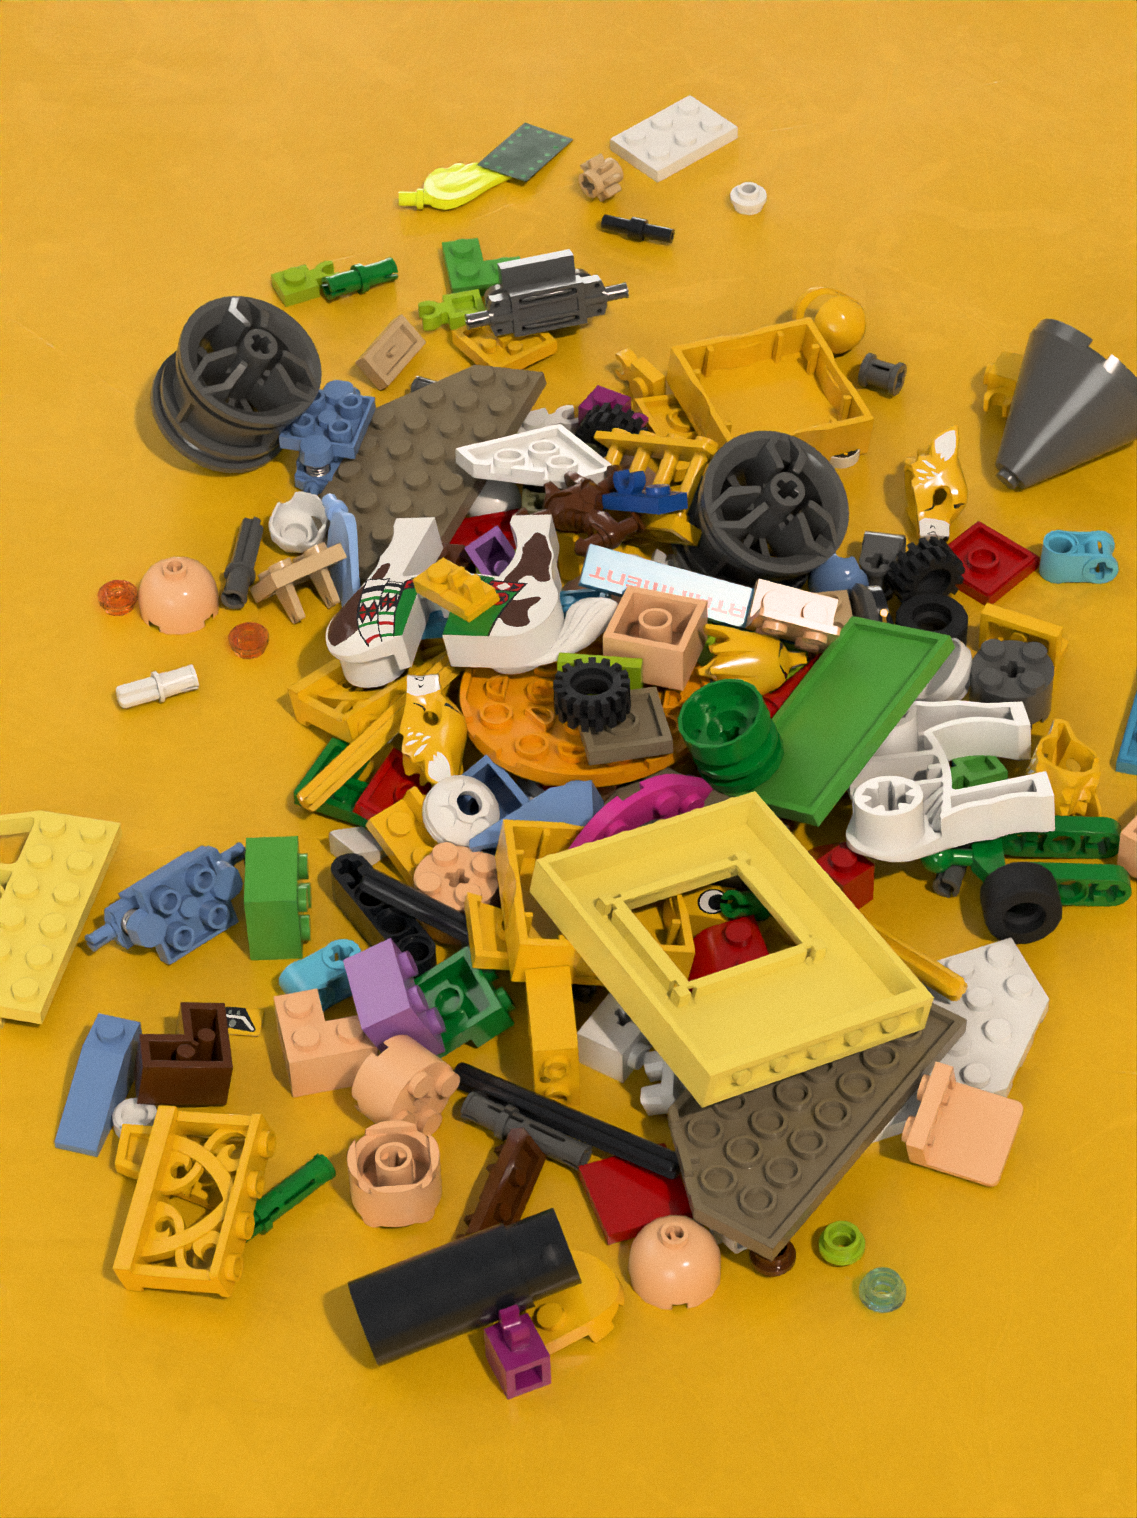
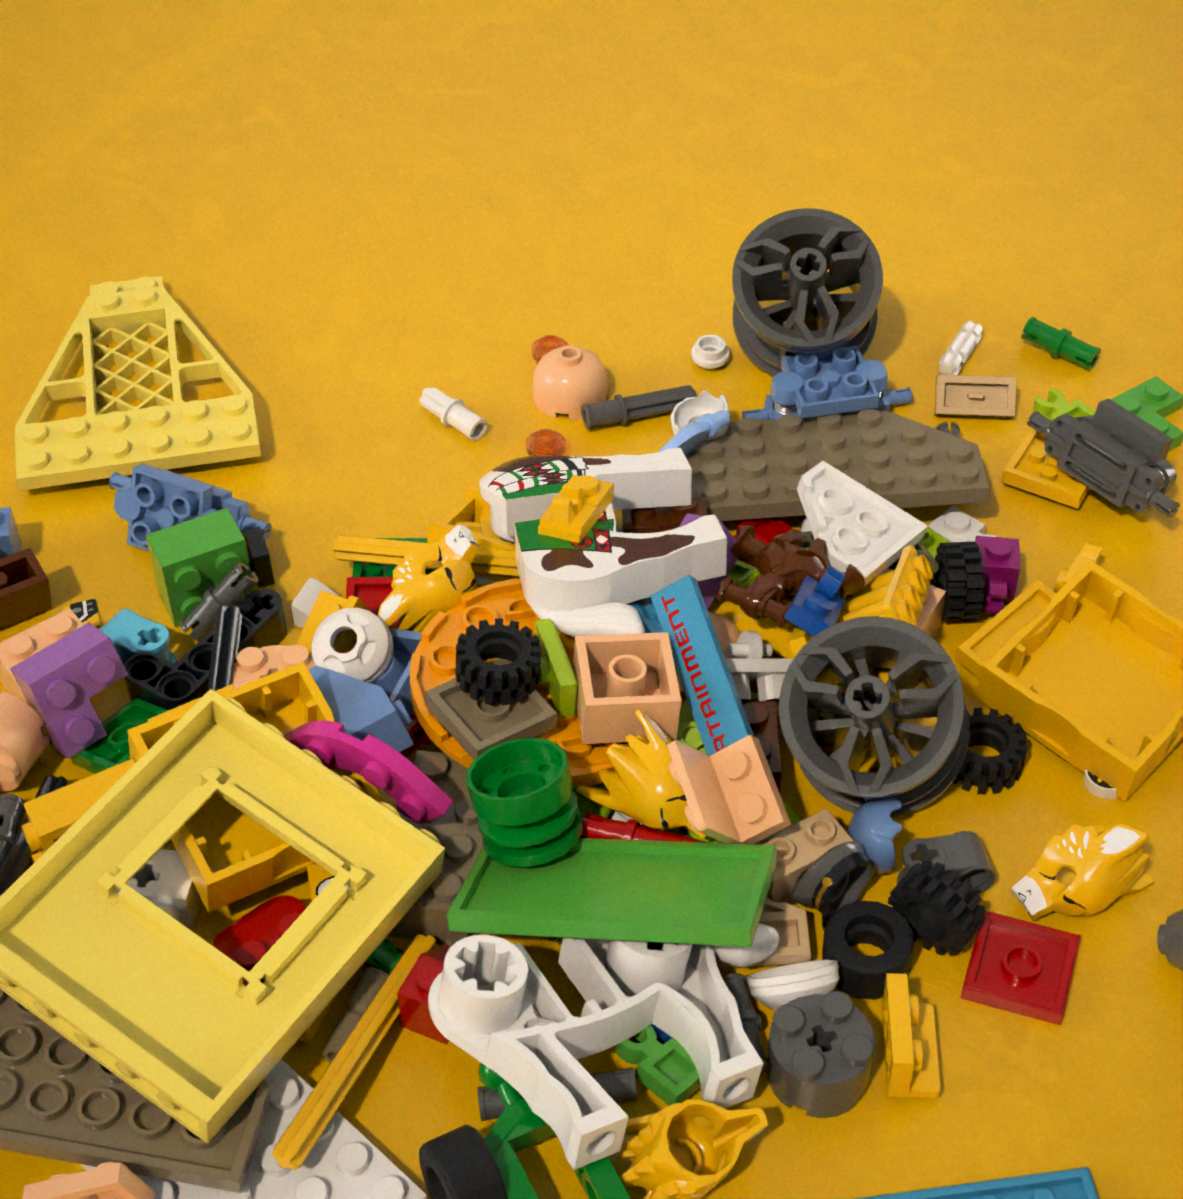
camera: 65 degrees right, 0 degrees up
(202, 492) = (710, 352): none -> white plate
(284, 575) = (613, 429): tan plate -> none
(300, 283) = (1023, 306): lime plate -> none
(323, 898) = (226, 593): none -> dark grey pin
(327, 349) = (960, 348): none -> white axle
(1075, 555) = (1090, 1058): medium azure piece -> none

